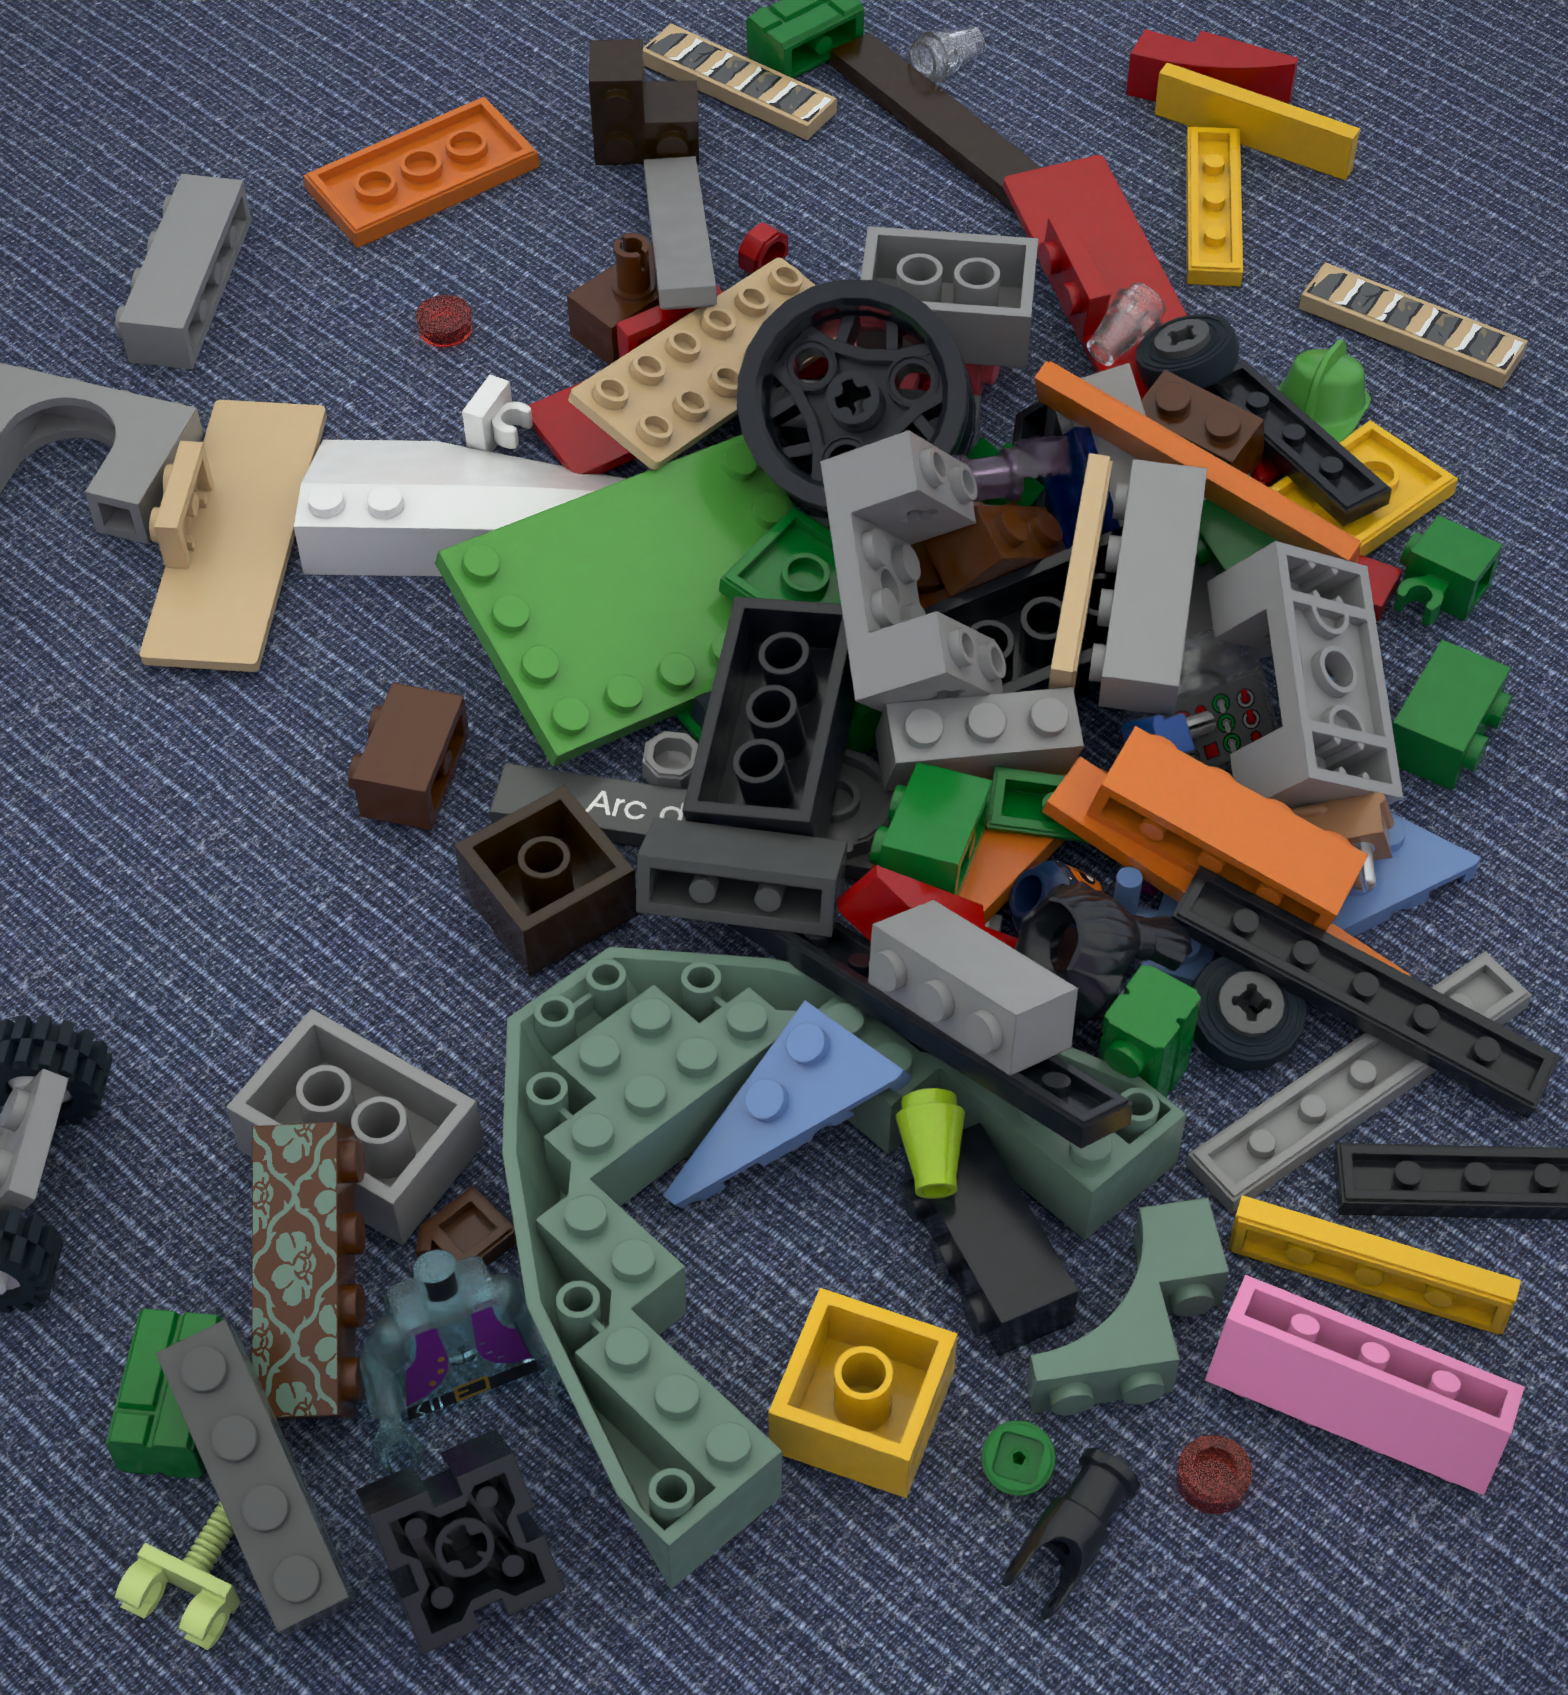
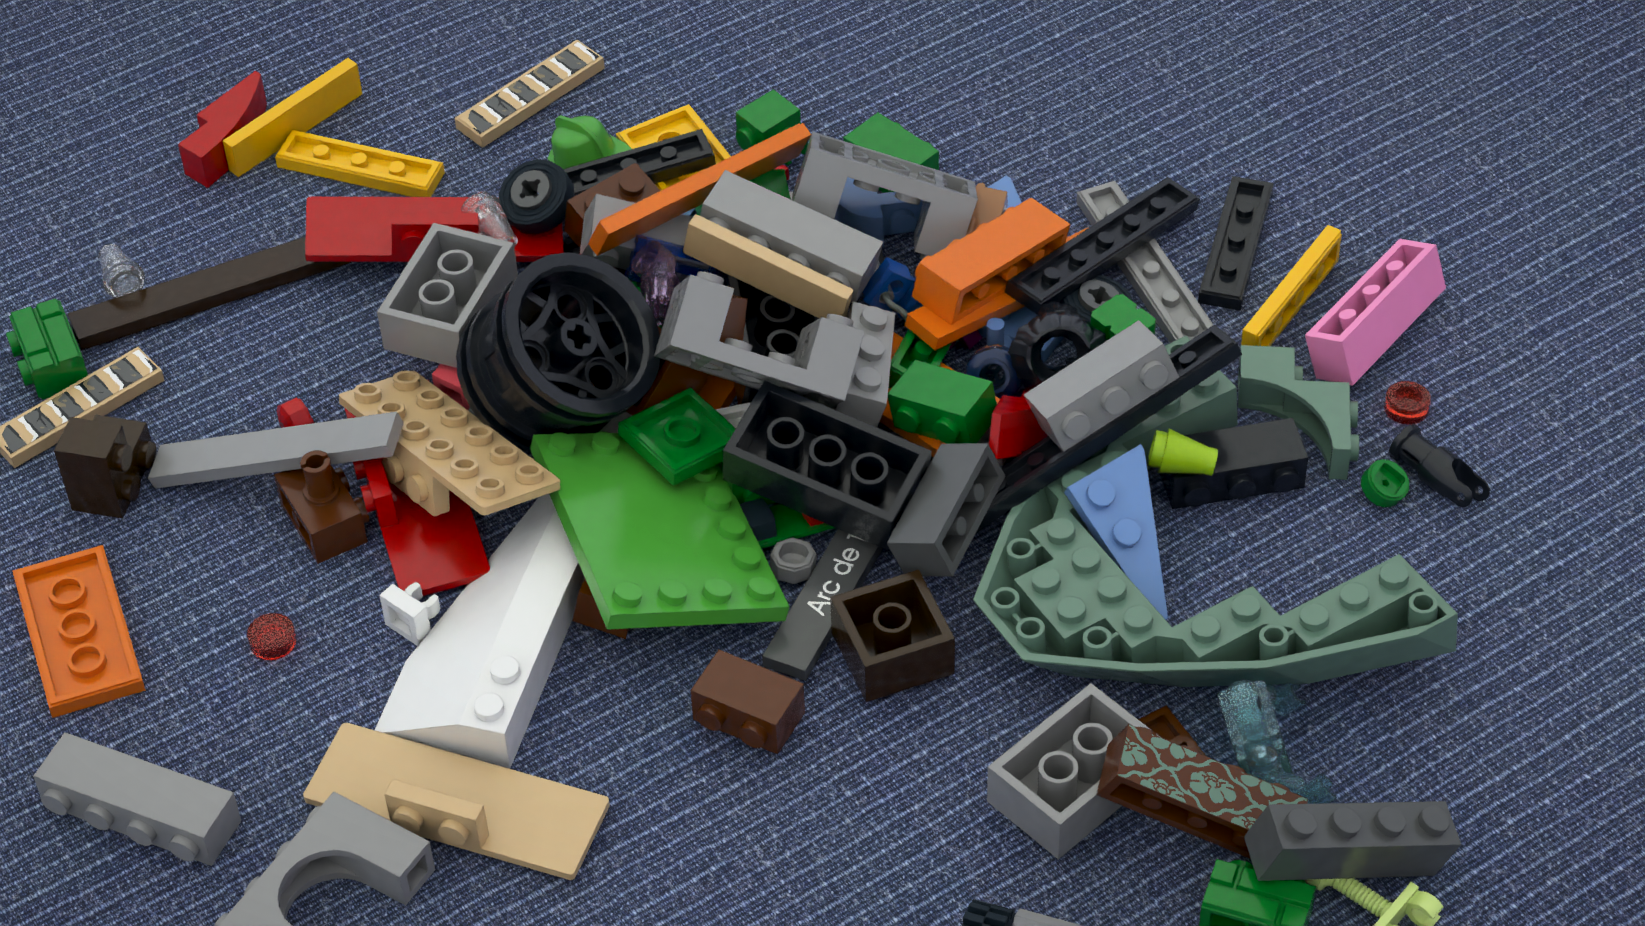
camera: 75 degrees left, 5 degrees down
(460, 1540) = (1409, 743): black brick -> none
(862, 1392) = (1335, 533): yellow brick -> none

